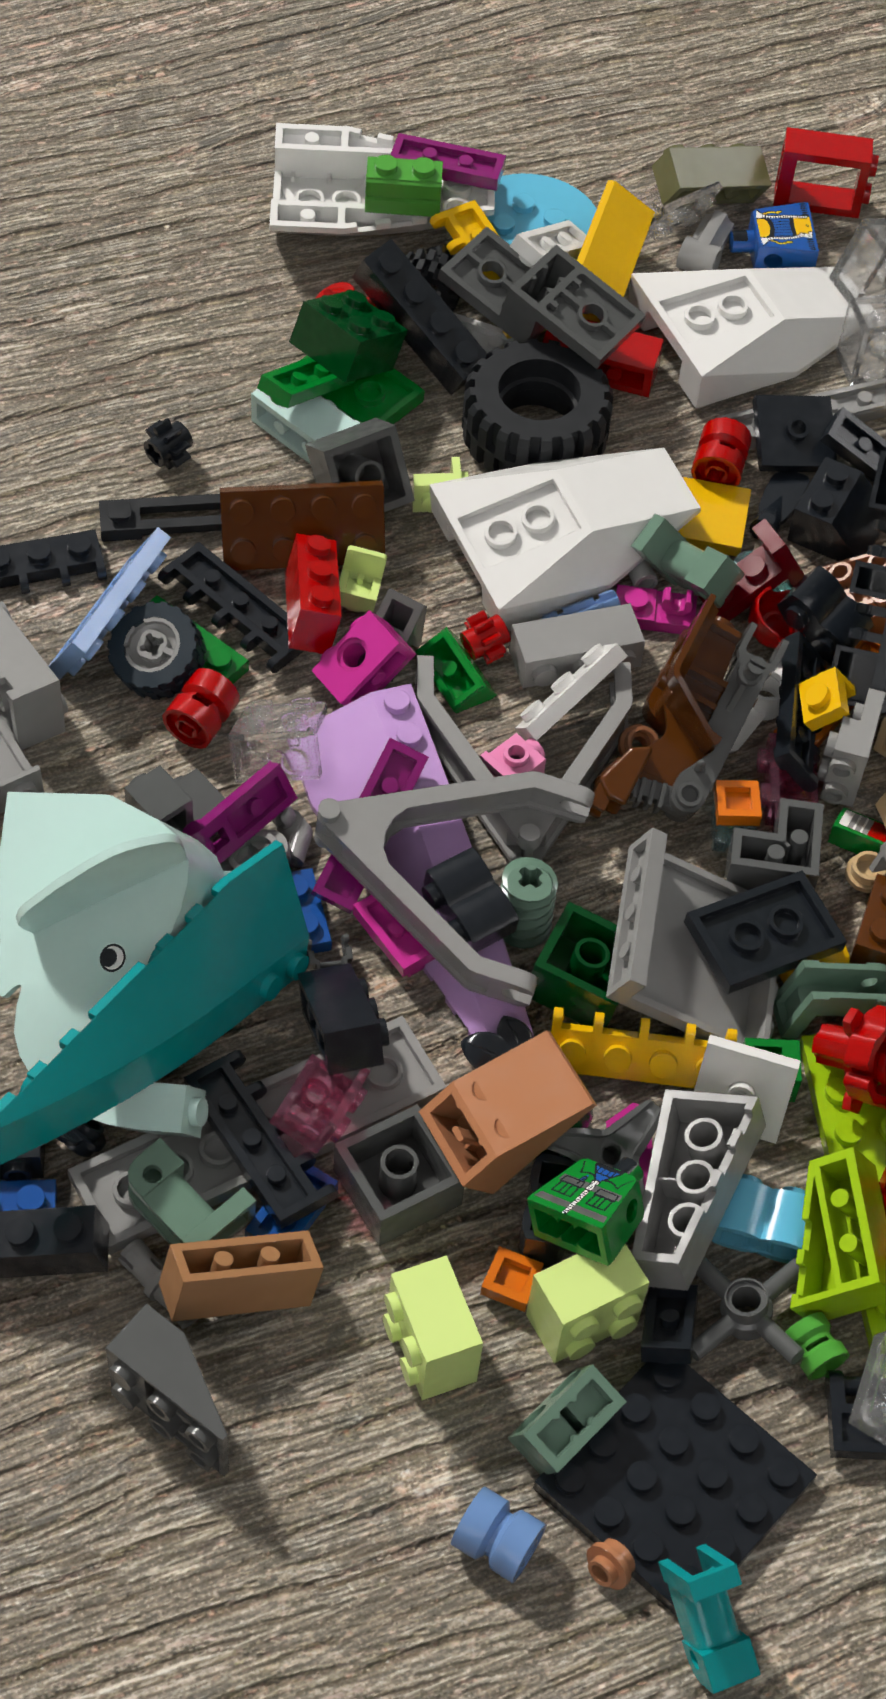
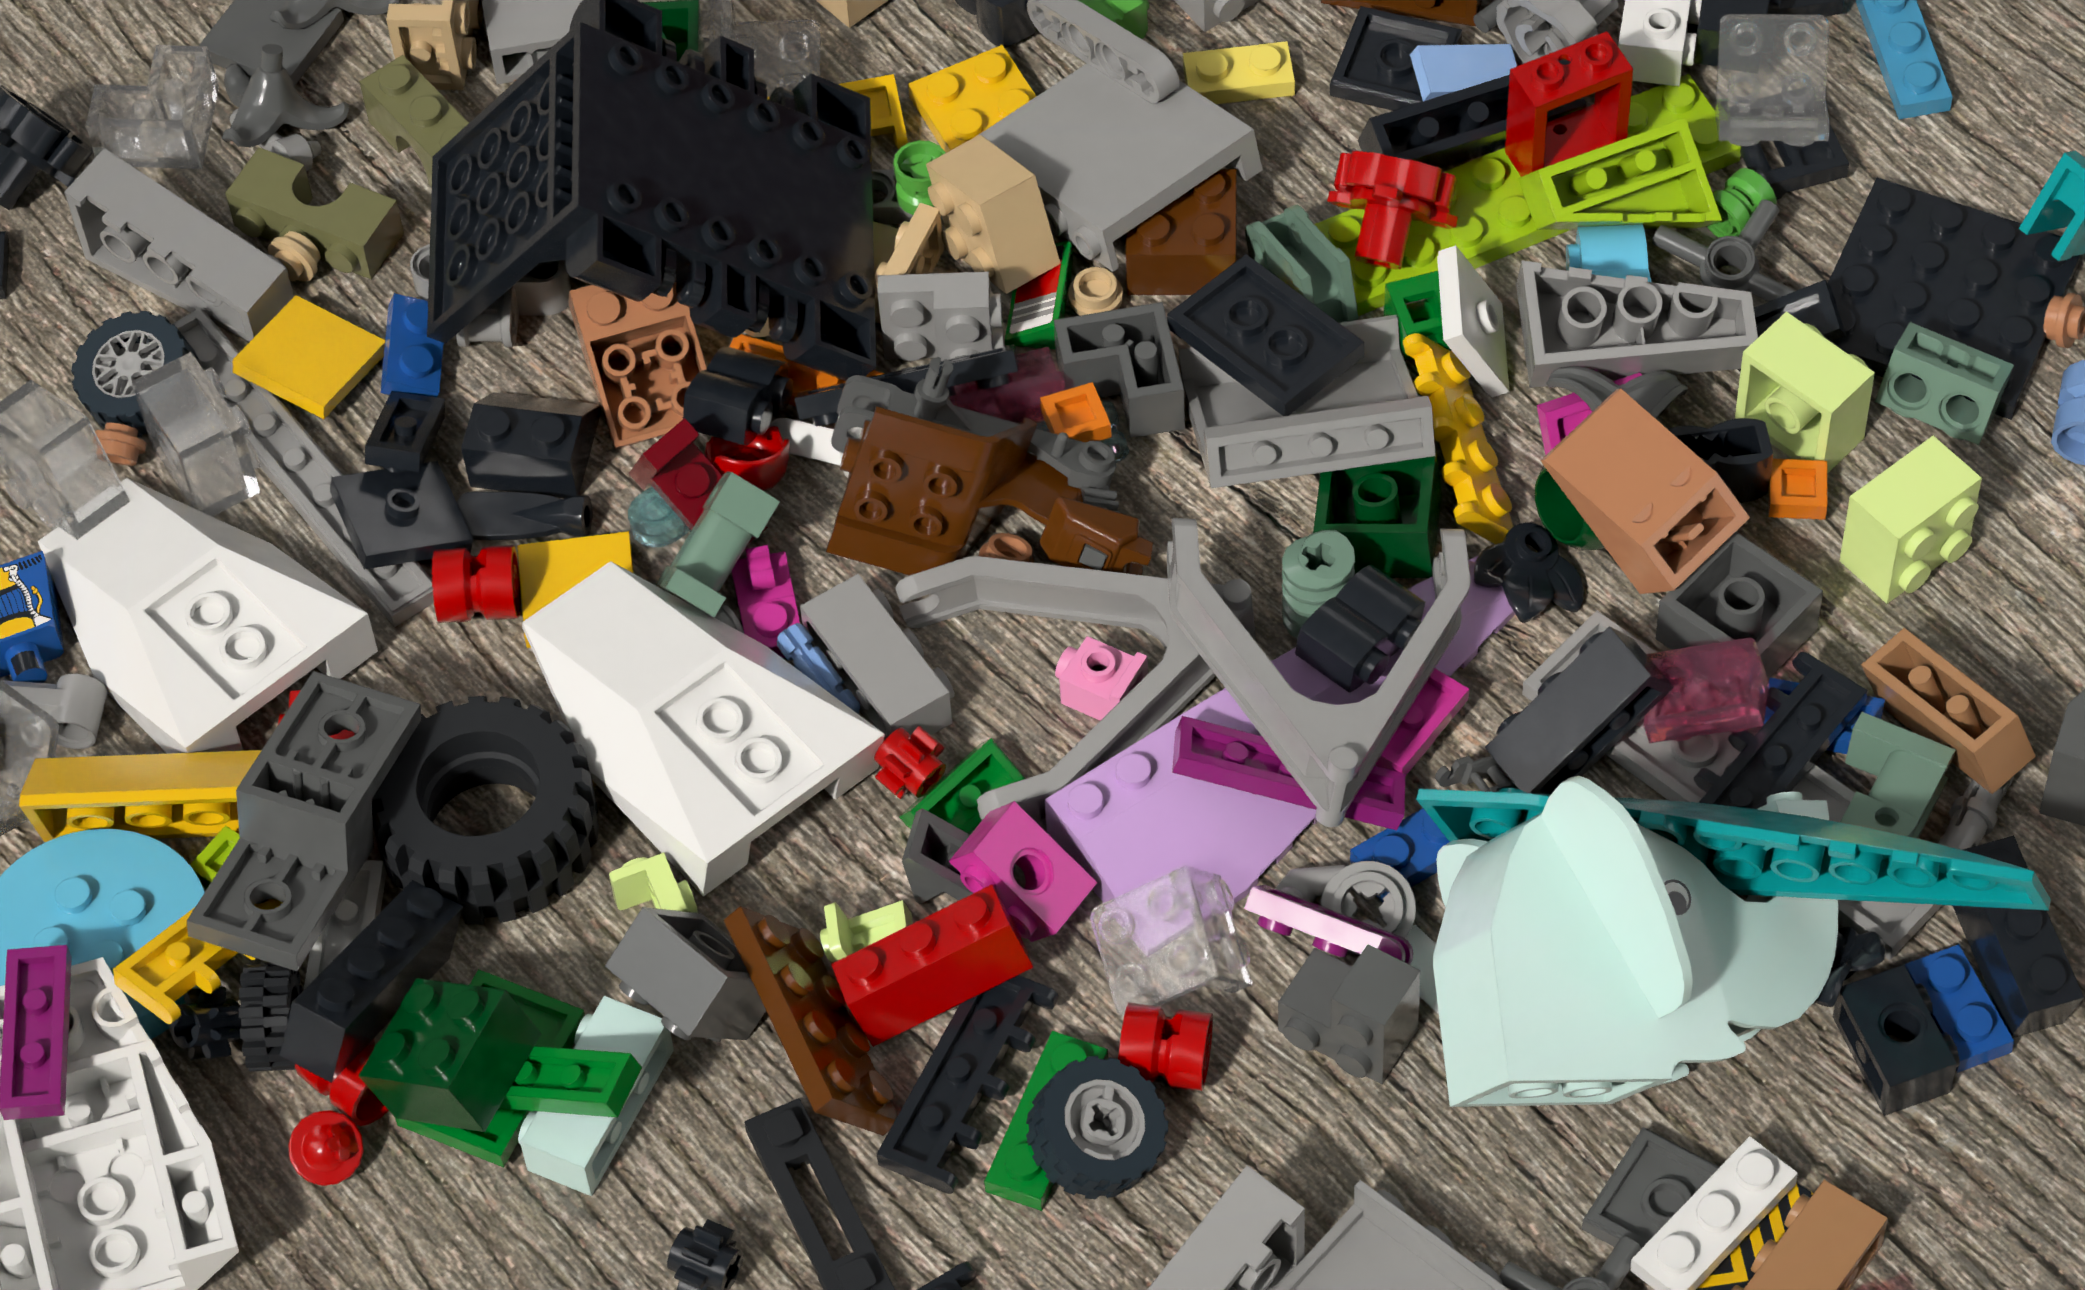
camera: 100 degrees left, 0 degrees up
(110, 605) = (1051, 1206): light blue plate -> none
(403, 186) = (123, 1063): bright green brick -> none
(536, 243) = (177, 843): white plate -> none
(570, 690) = (973, 633): white plate -> none
(590, 1208) = (1731, 373): green torso -> none
(825, 698) = (904, 340): yellow bracket -> none

